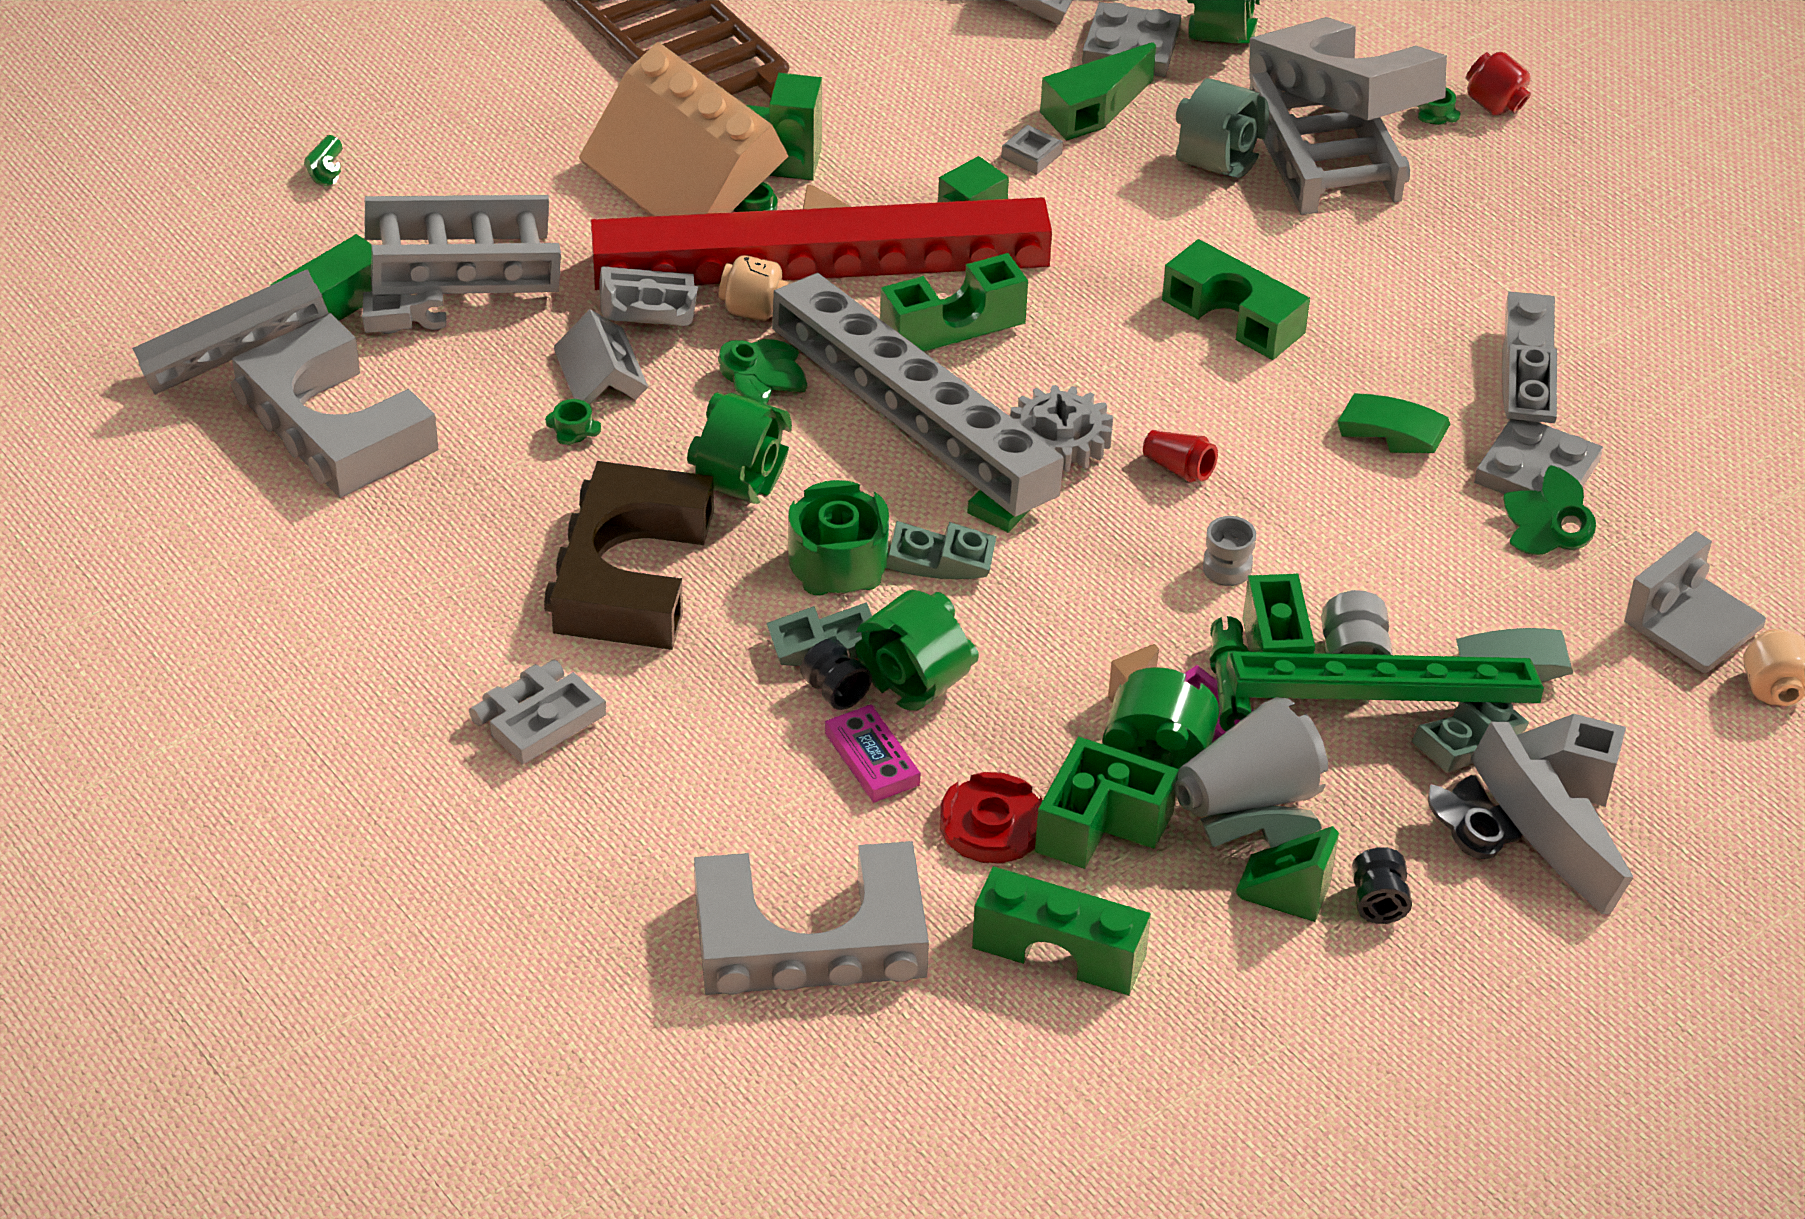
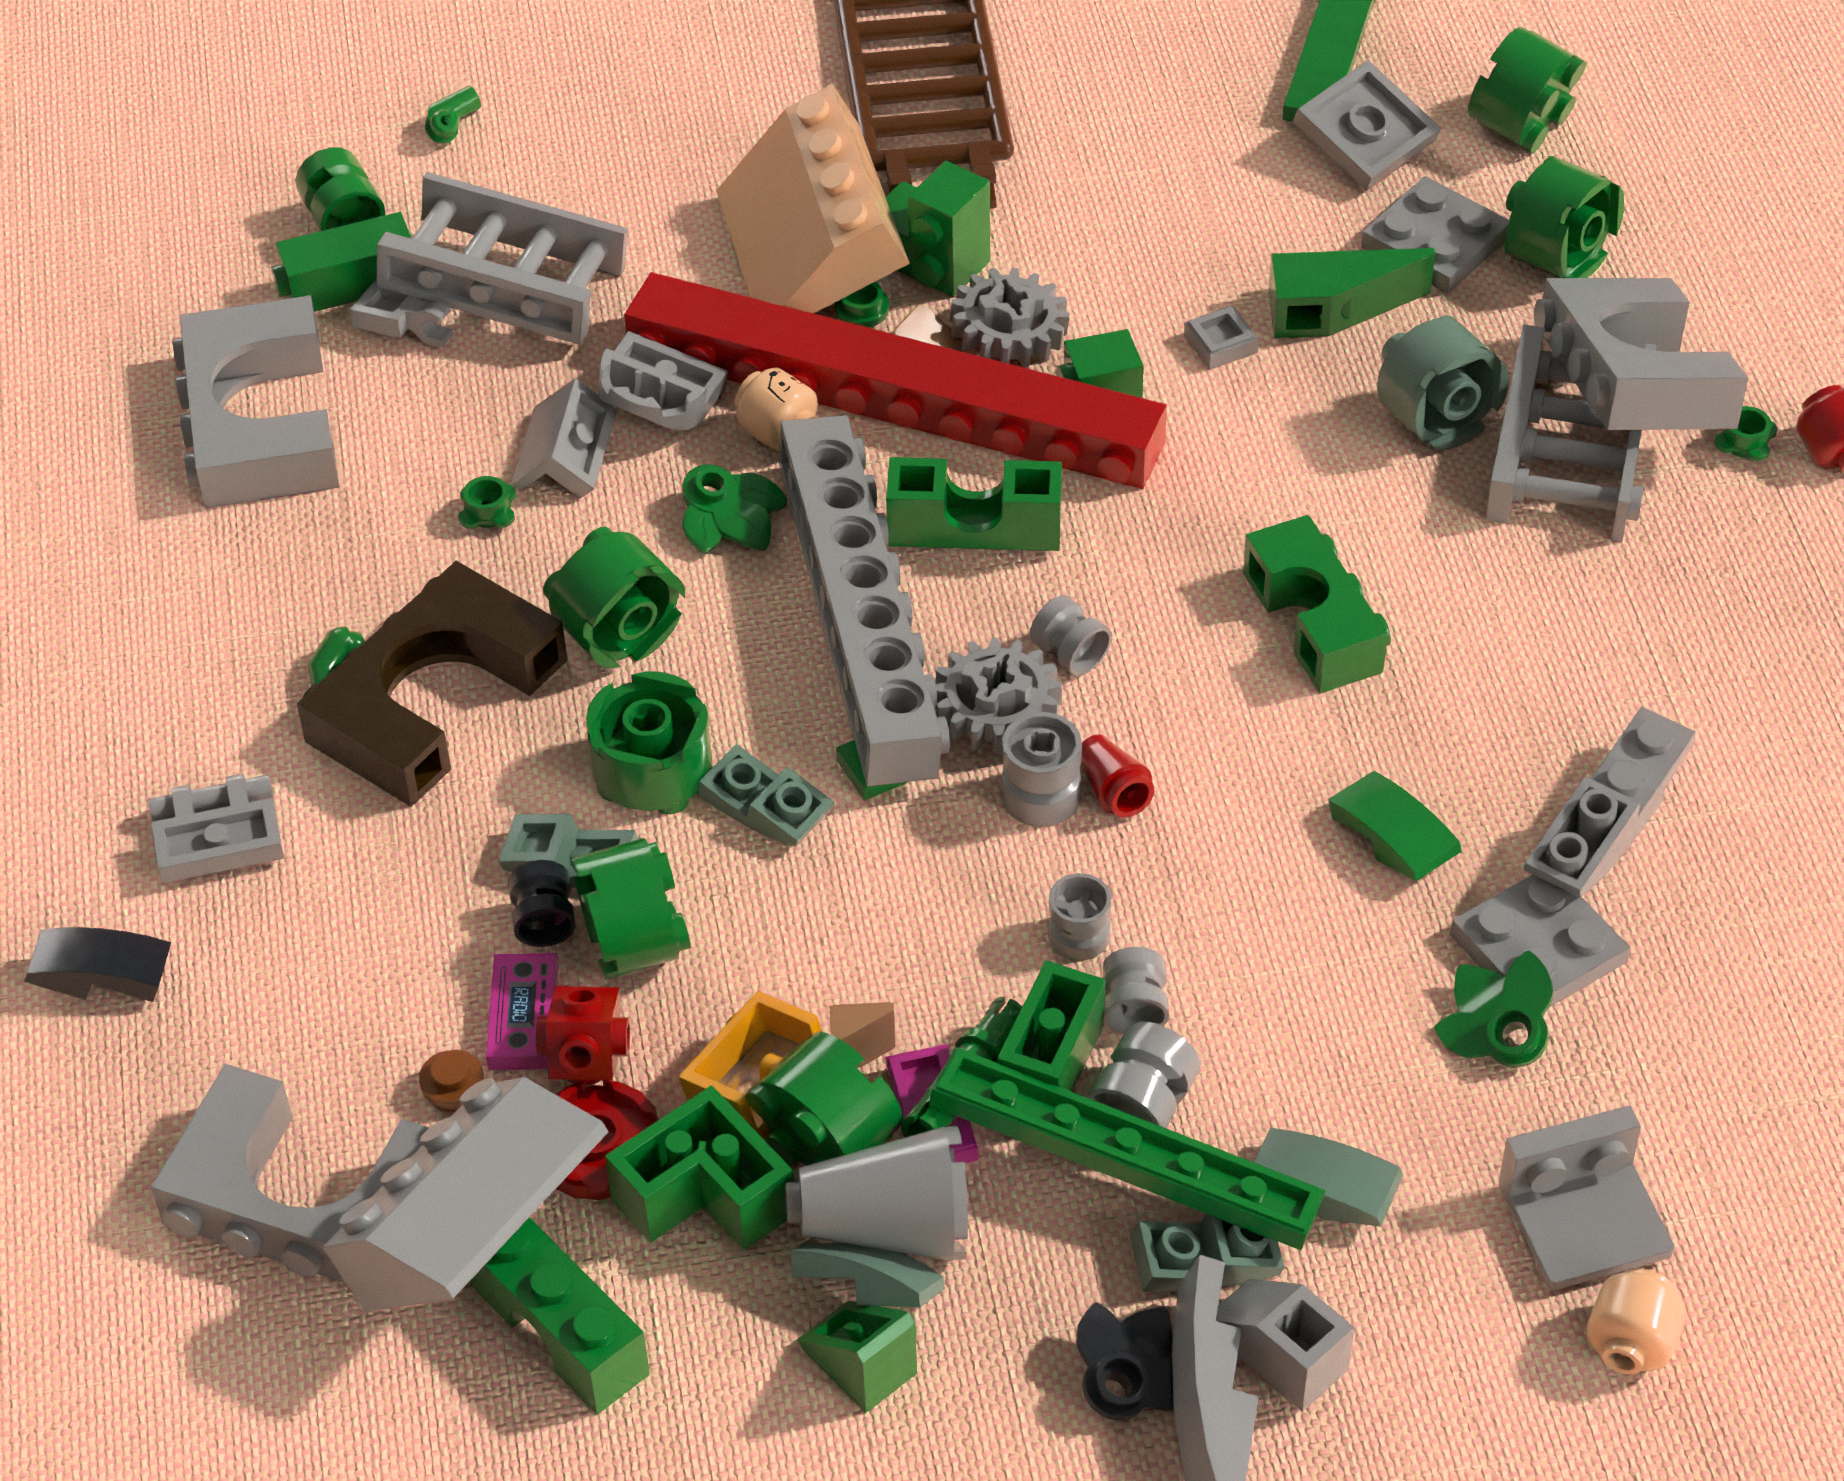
camera: 30 degrees right, 5 degrees up
(229, 331) = (200, 283): light grey fence -> none
(285, 237) = (337, 189): none -> green wheel
(511, 832) = (113, 959): none -> black slope
(533, 565) = (332, 652): none -> green arm
(857, 816) = (448, 1076): none -> dark orange plate
(876, 175) = (1009, 317): none -> light grey gear
(942, 745) = (583, 1034): none -> red brick
(961, 870) = (460, 1194): none -> light grey slope
(1072, 707) = (747, 1051): none -> light orange window
(1082, 371) = (1066, 631): none -> light grey wheel
(1134, 463) = (1041, 769): none -> light grey wheel
(1316, 585) = (1136, 980): none -> light grey wheel
(1381, 885) = (956, 1399): black wheel -> none

